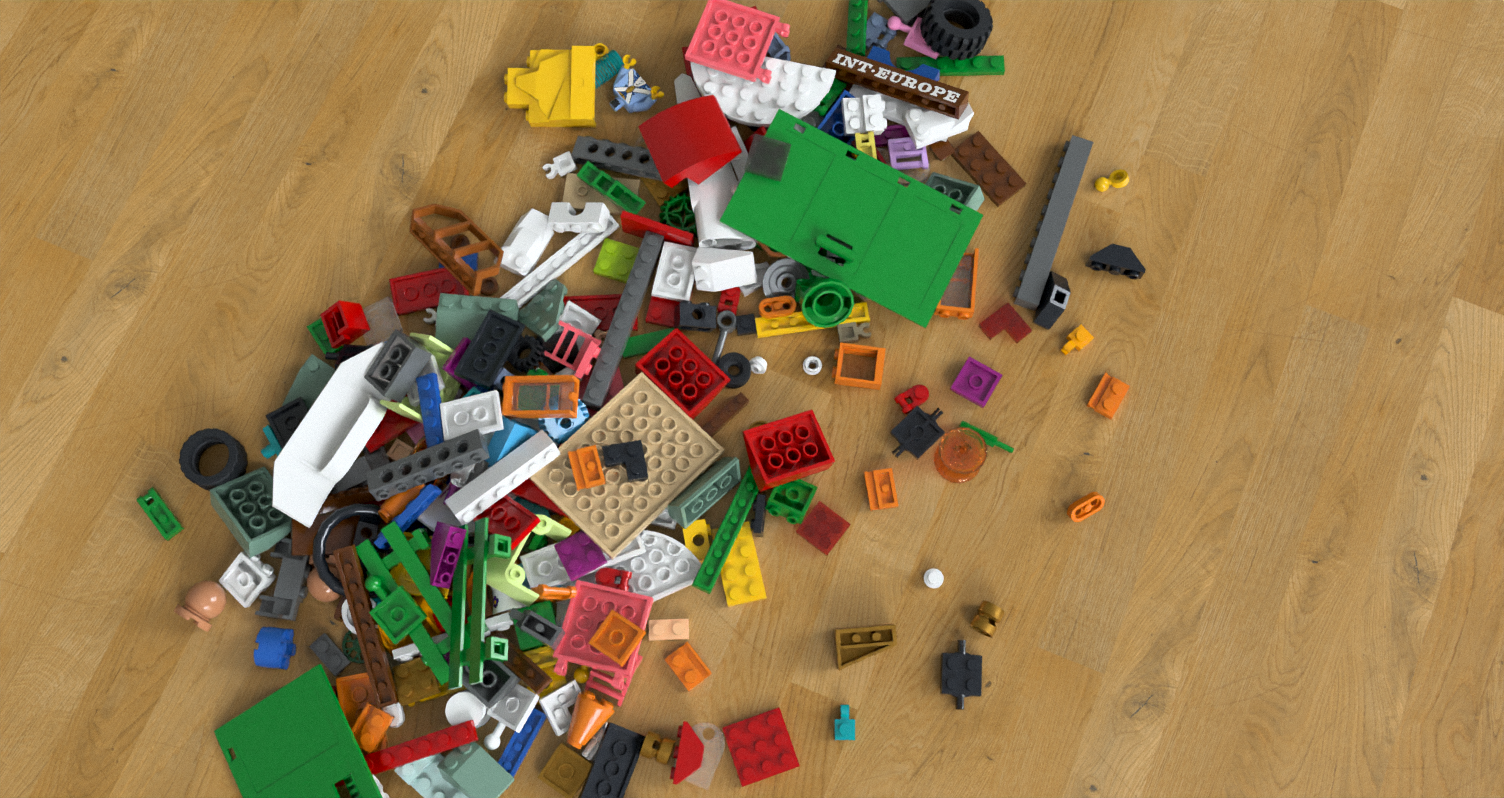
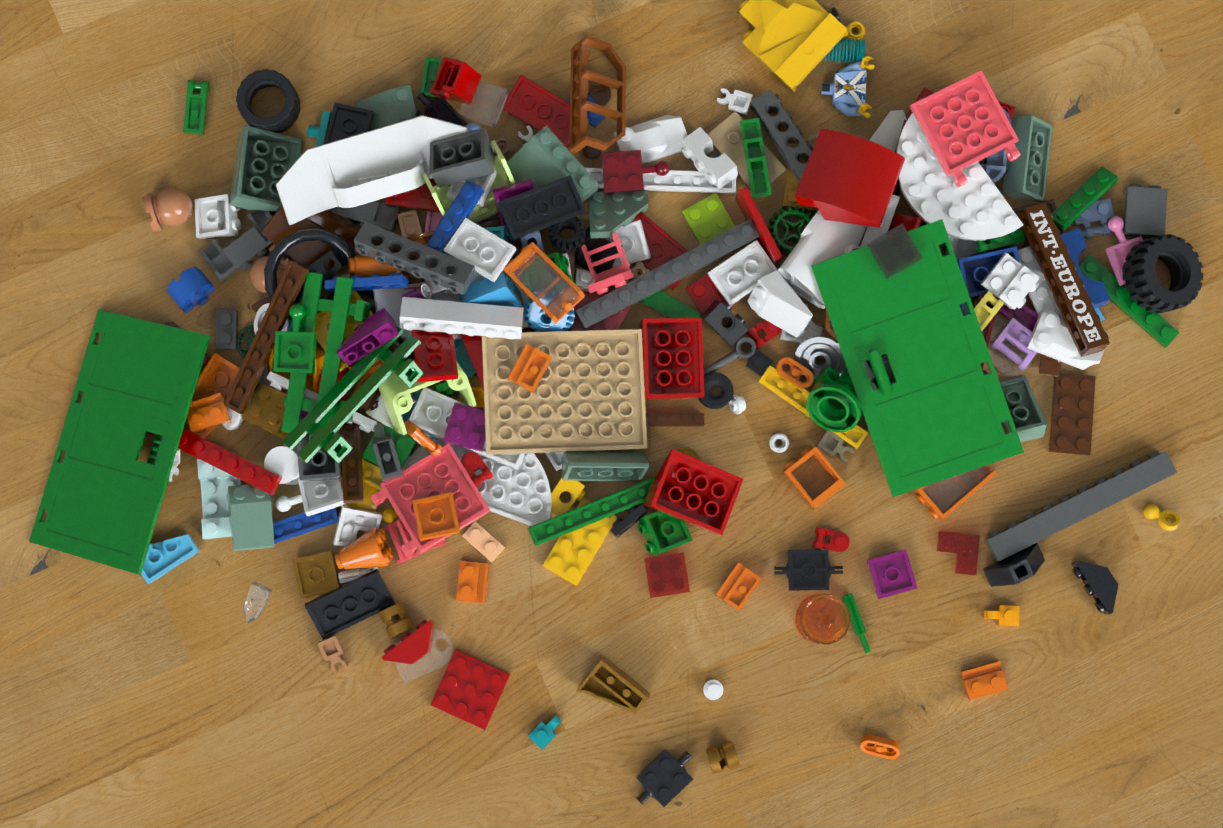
camera: 45 degrees right, 10 degrees up
(526, 277) = (625, 171): none -> dark red plate
(629, 454) = (572, 389): black plate -> none
(803, 40) = (1027, 175): none -> sand green slope

